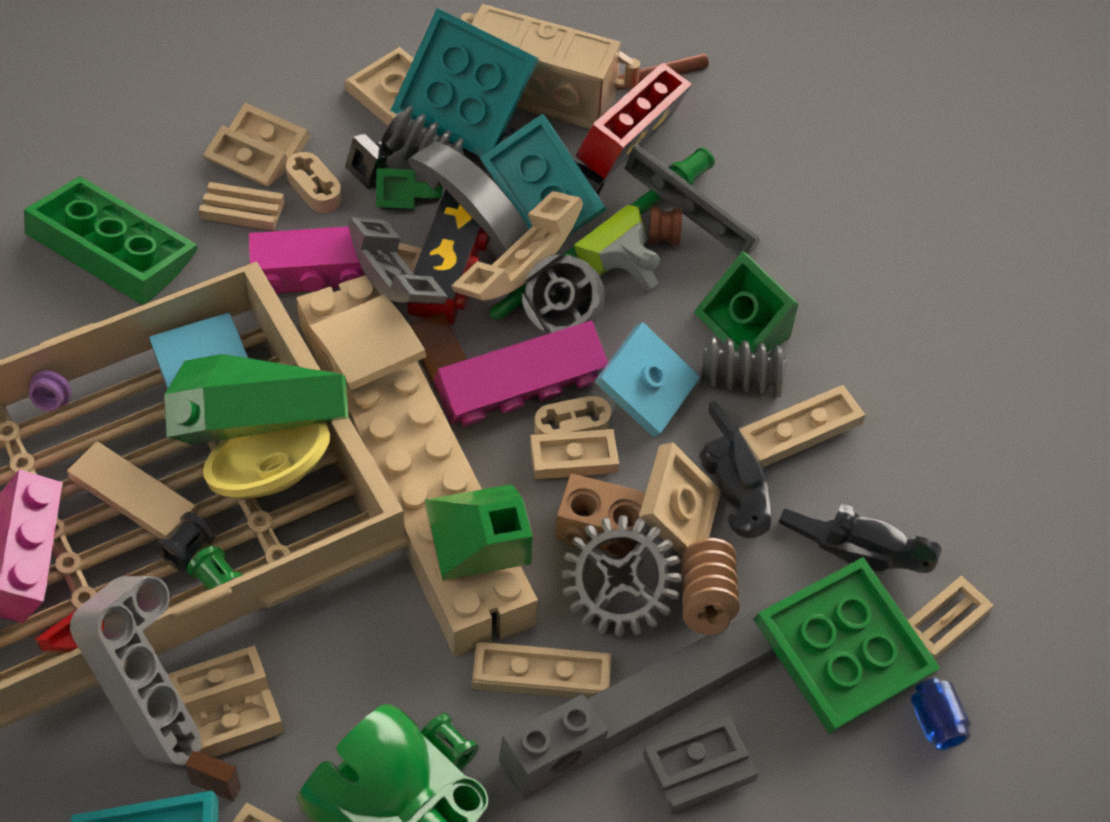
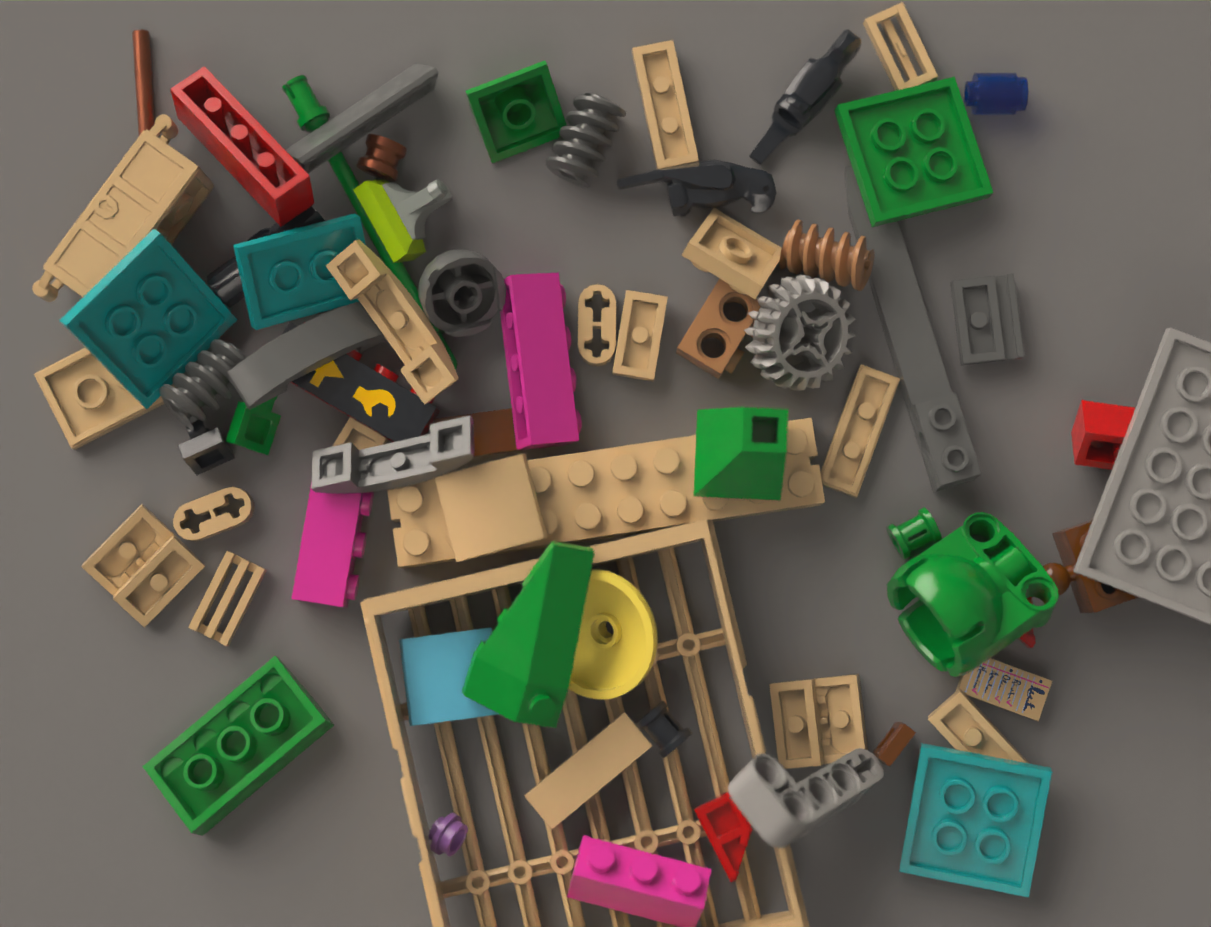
camera: 75 degrees left, 30 degrees up
(211, 568) = (717, 695): green bush -> none
(647, 379) = (577, 238): medium azure plate -> none

